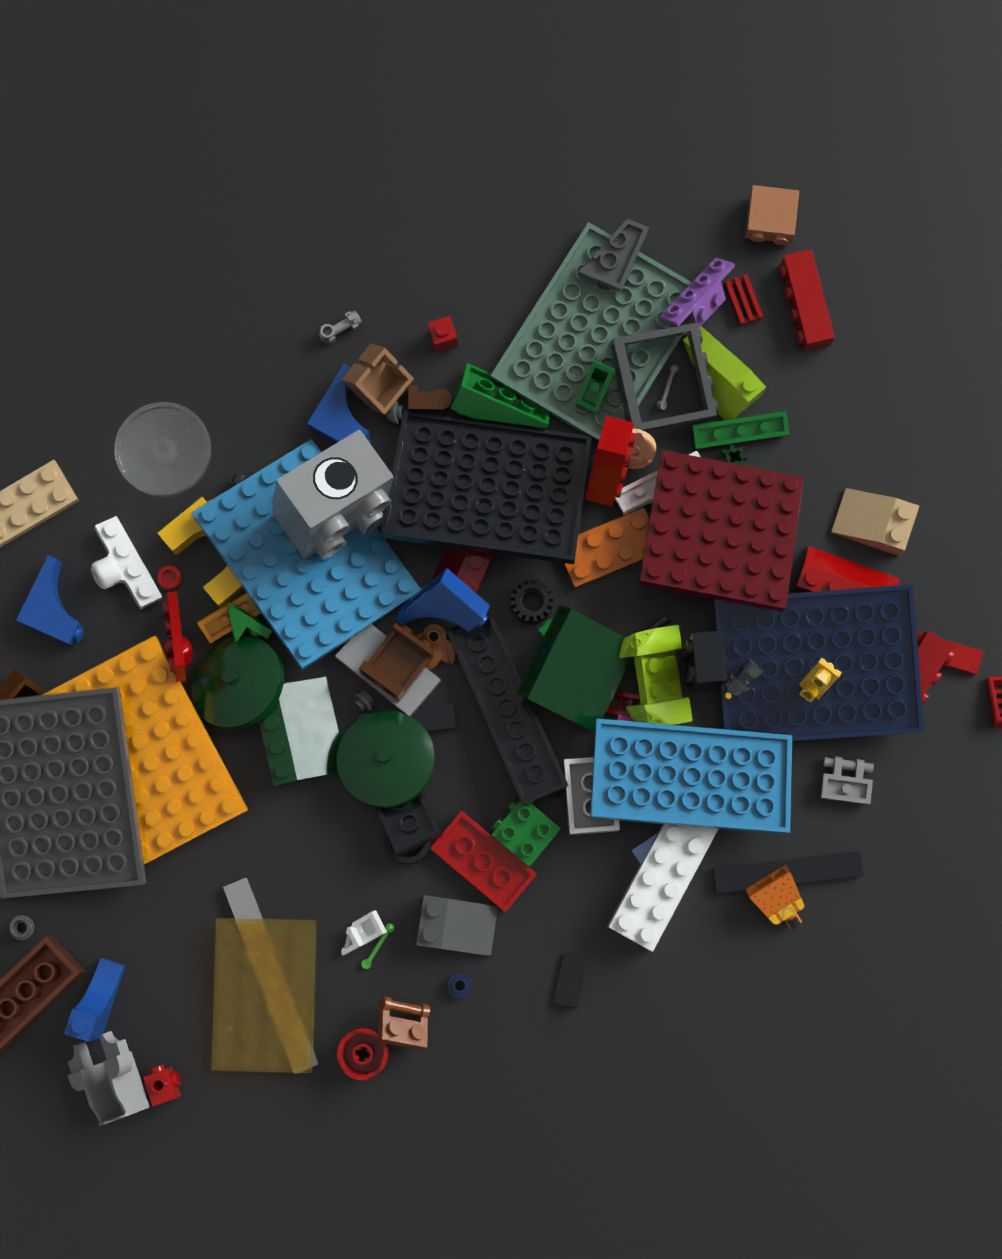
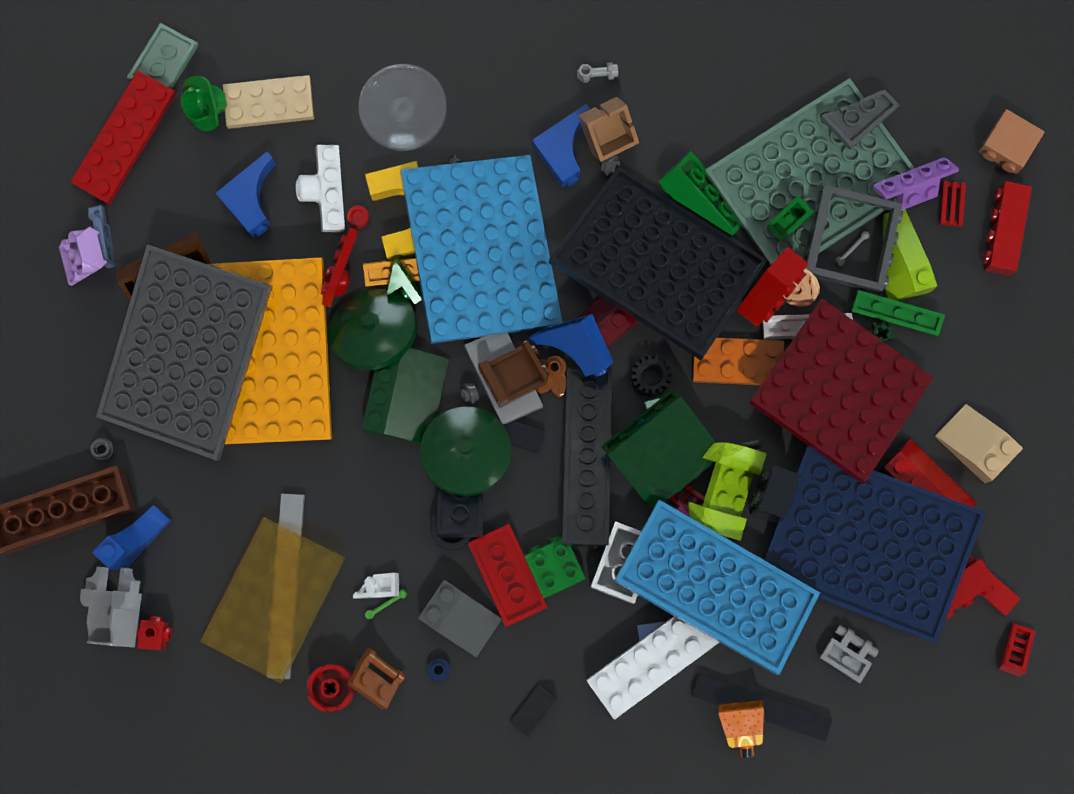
camera: 25 degrees right, 0 degrees up
(333, 496) = (524, 209): light grey brick -> none
(428, 401) = (643, 168): reddish brown leg -> none
(442, 334) = (681, 117): red brick -> none
(738, 684) = (793, 527): dark grey piece -> none
(818, 680) = (865, 556): yellow hips -> none

